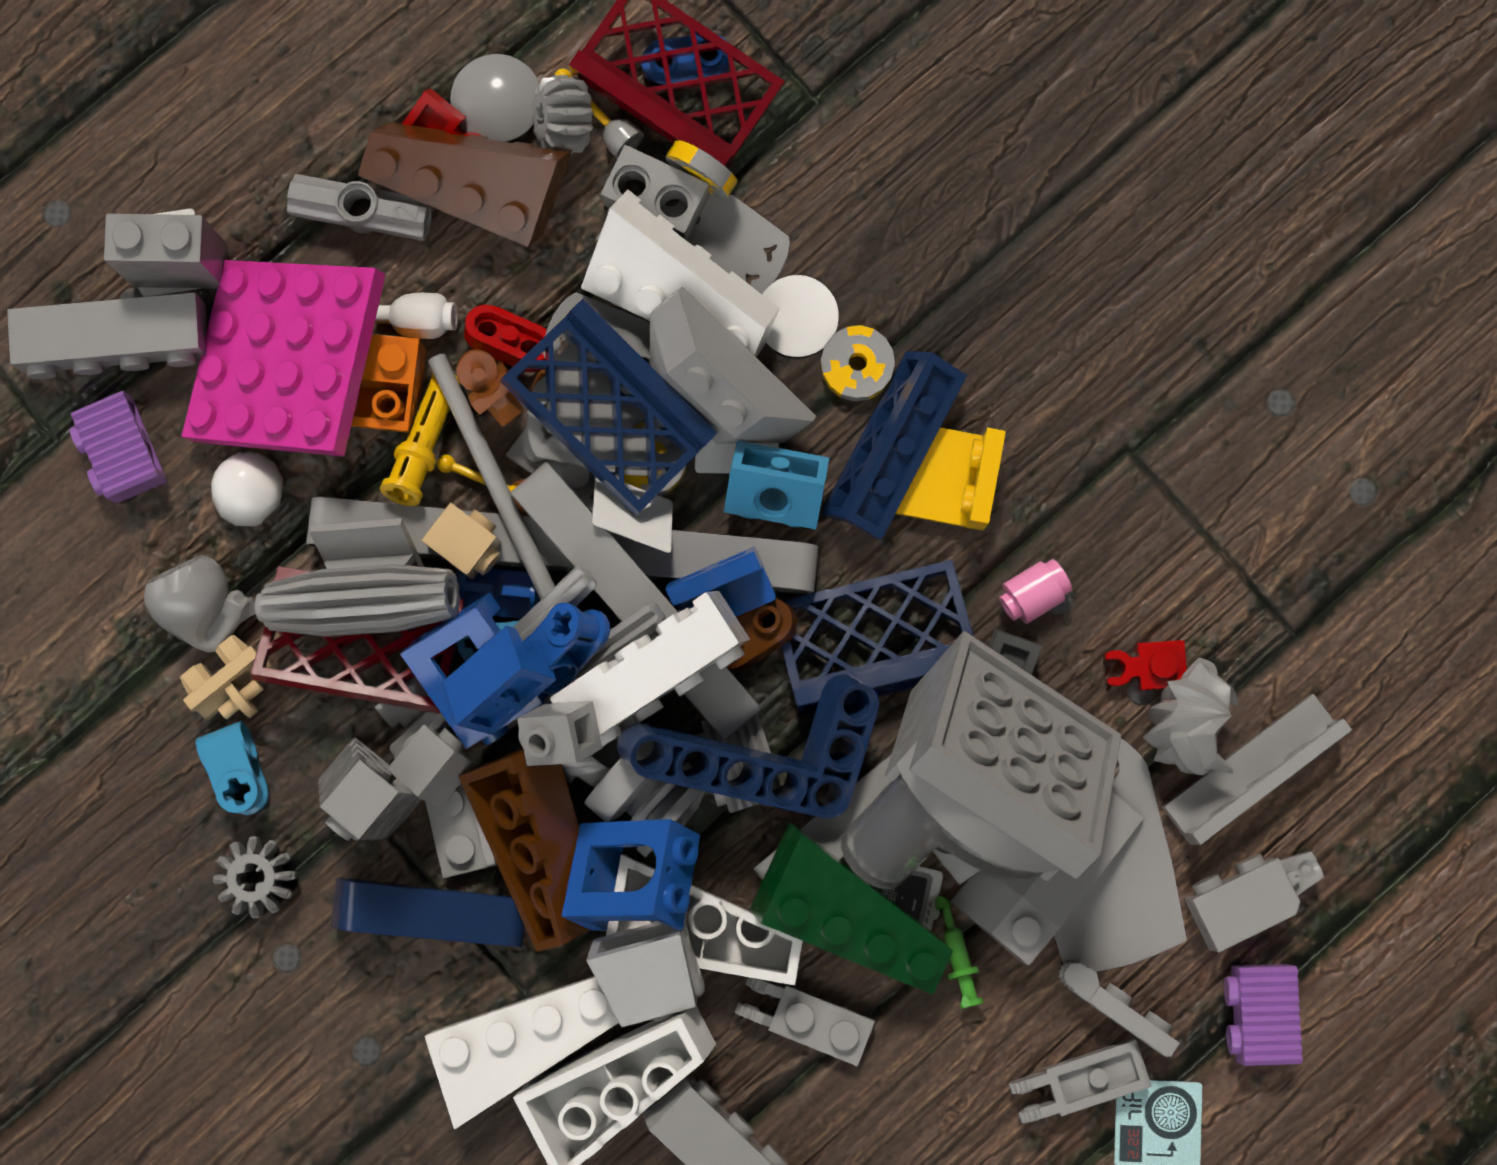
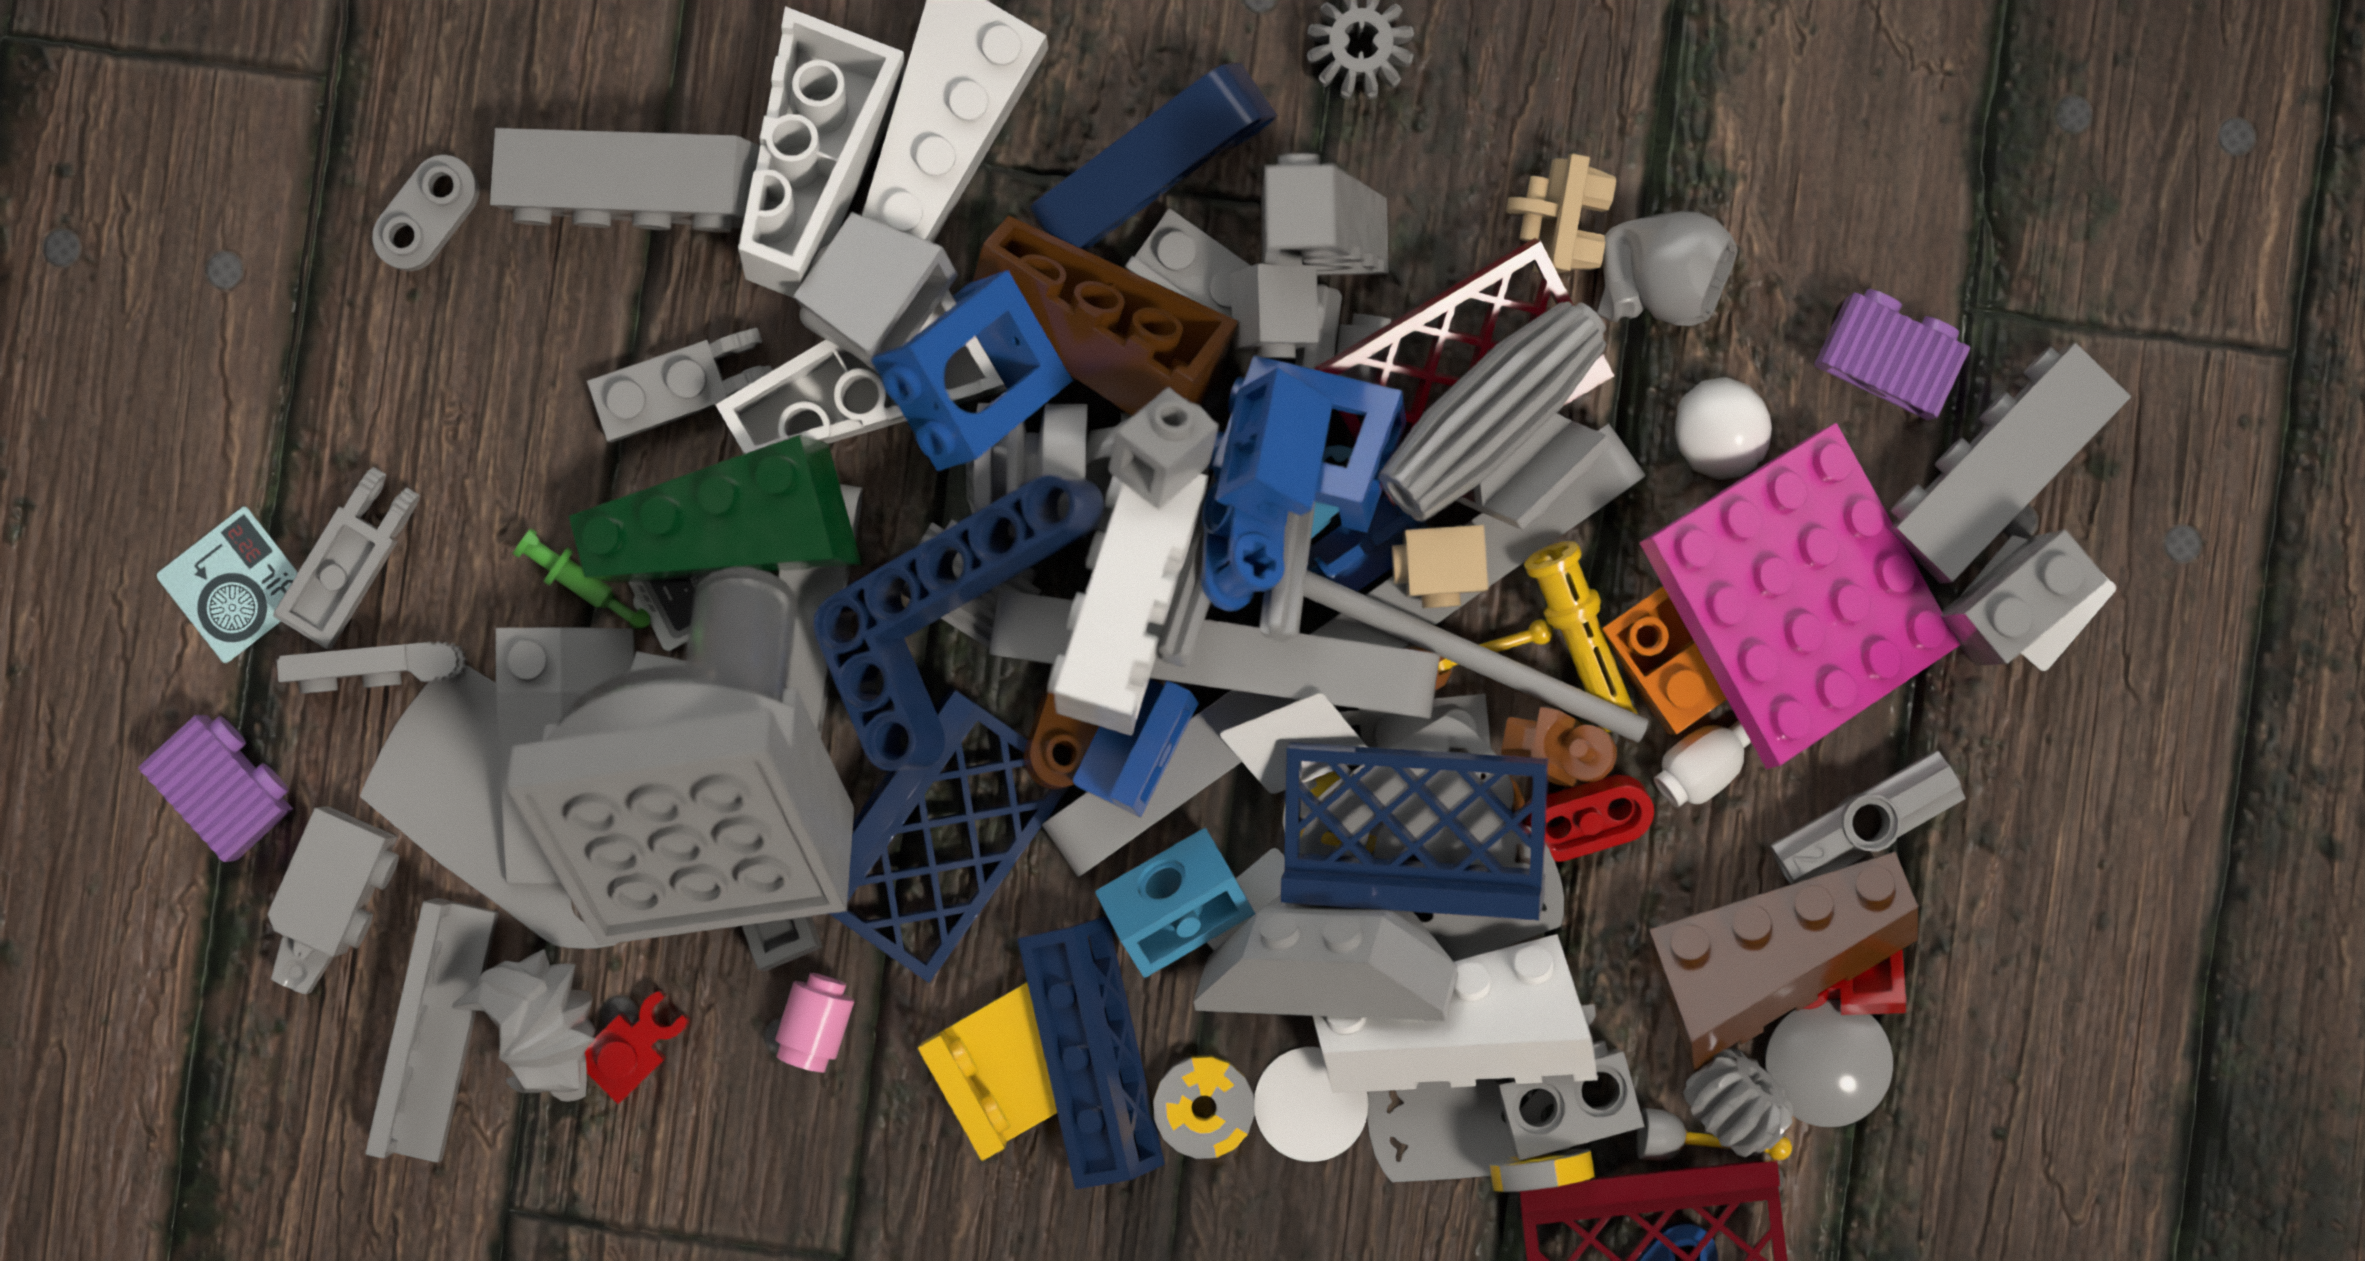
camera: 140 degrees right, 5 degrees up
(233, 760) = (1492, 138): dark azure piece -> none

